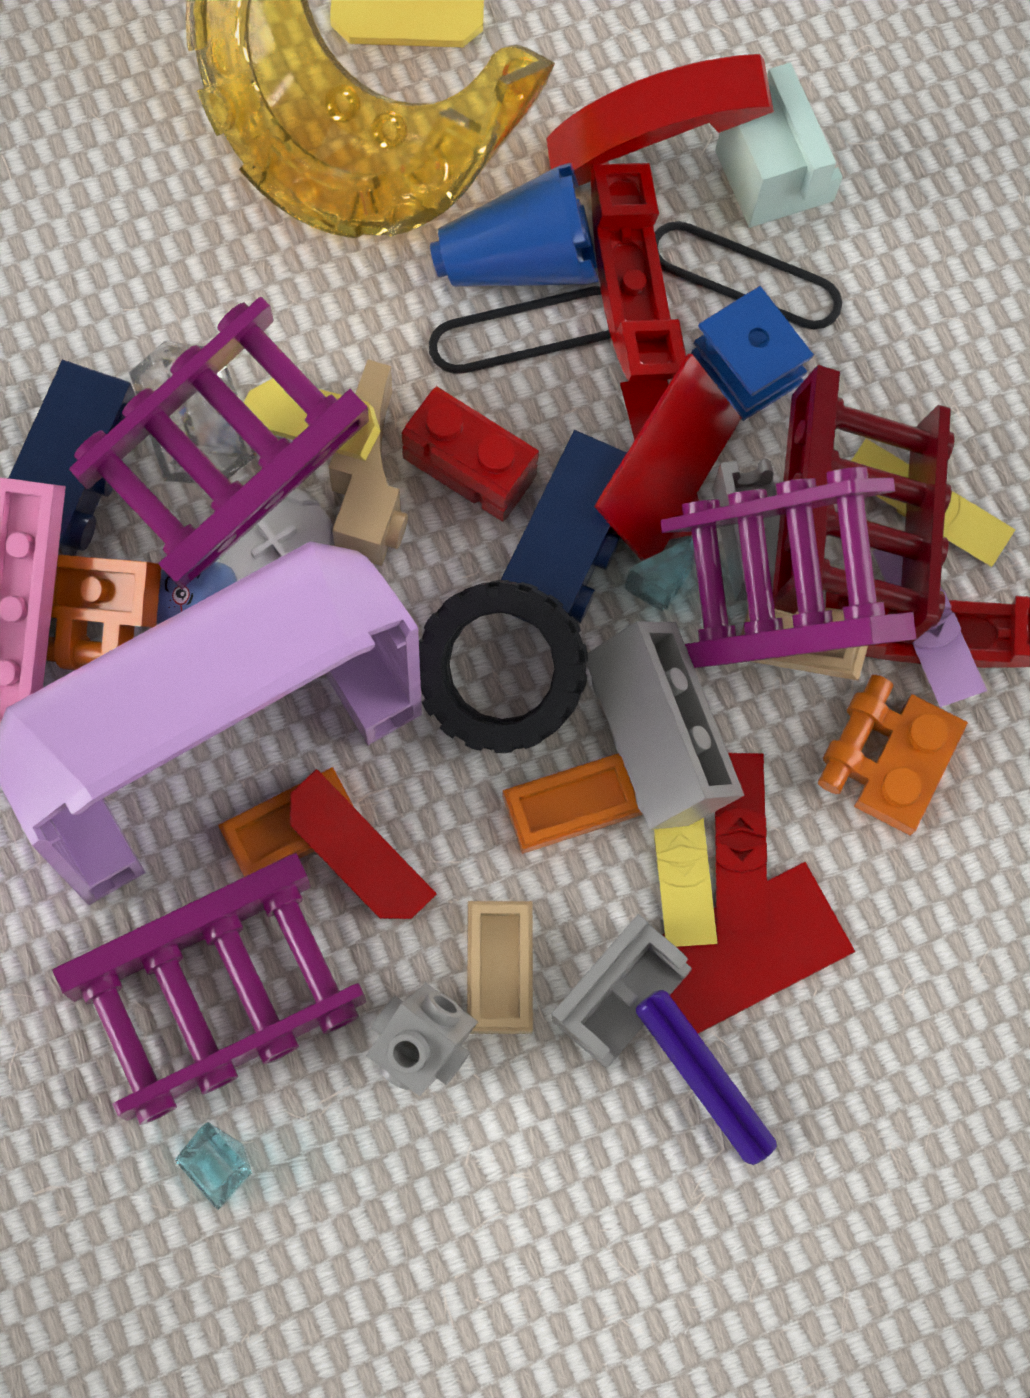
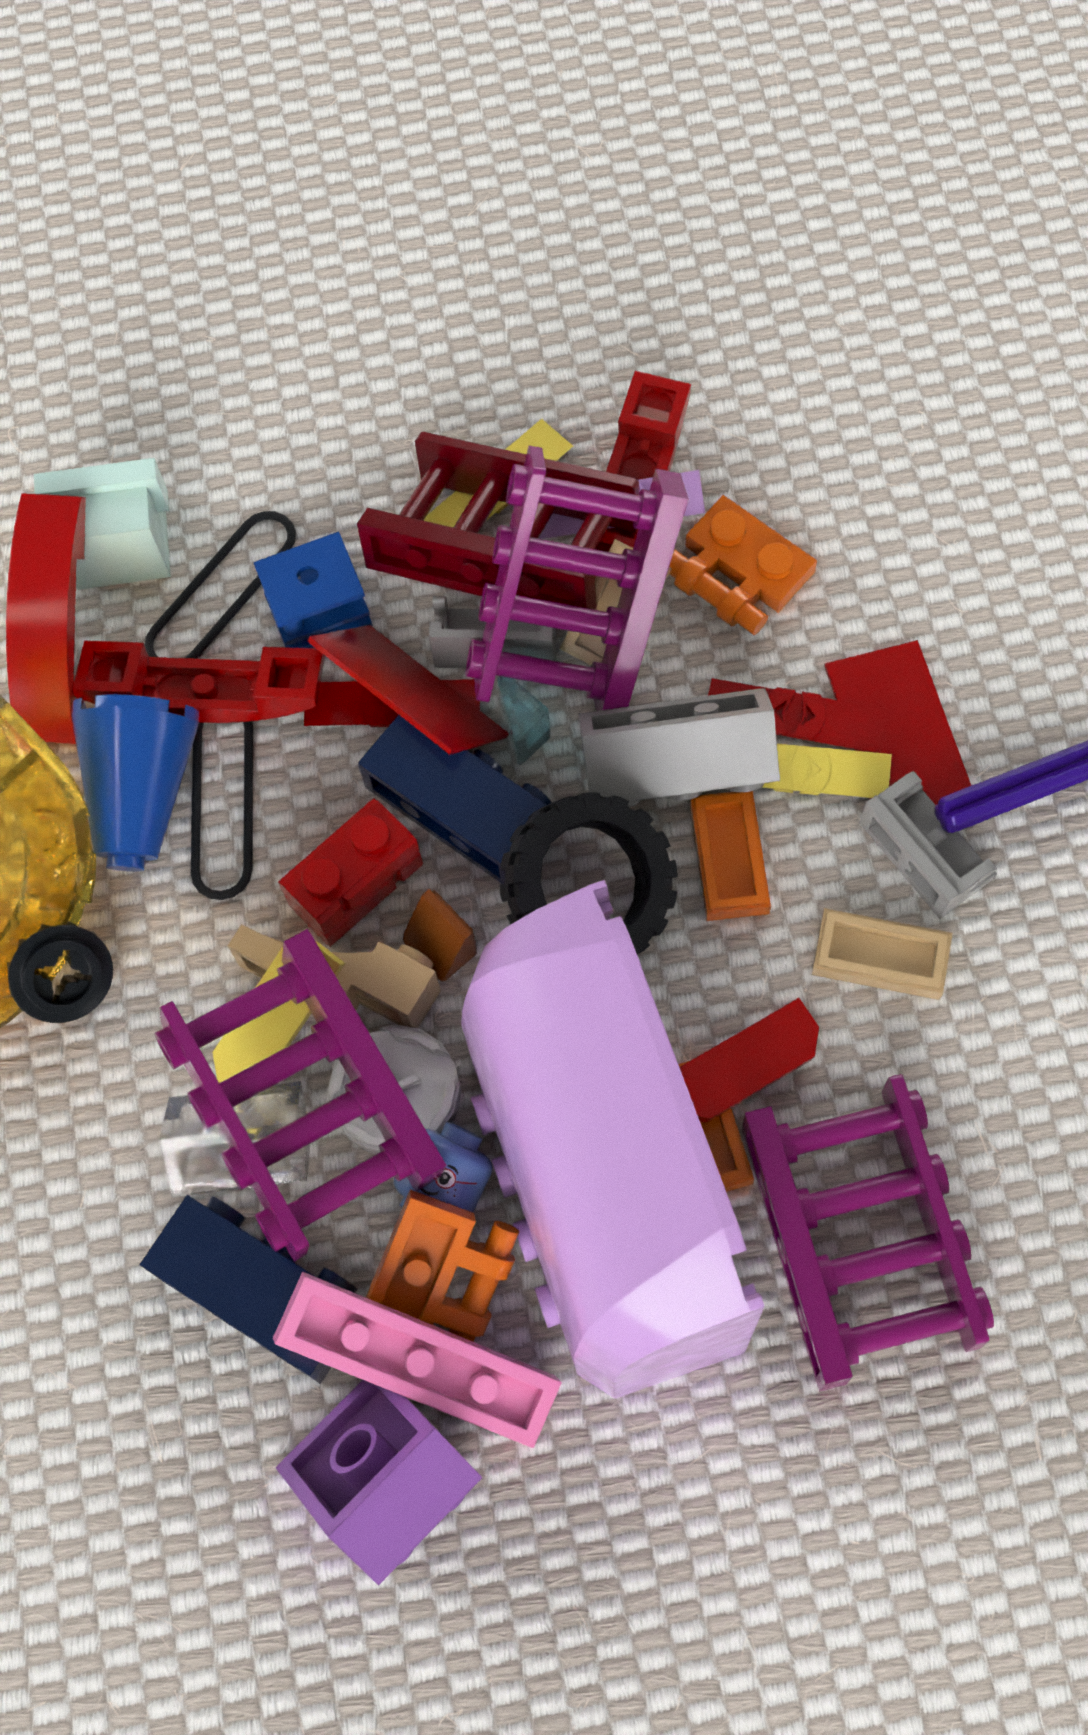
camera: 65 degrees left, 5 degrees down
(215, 1164) = (1043, 1260): clear light blue slope -> none
(314, 254) = (76, 993): none -> black gear
(421, 1039) = (953, 1029): light grey brick -> none
(429, 550) = (440, 935): none -> dark orange slope

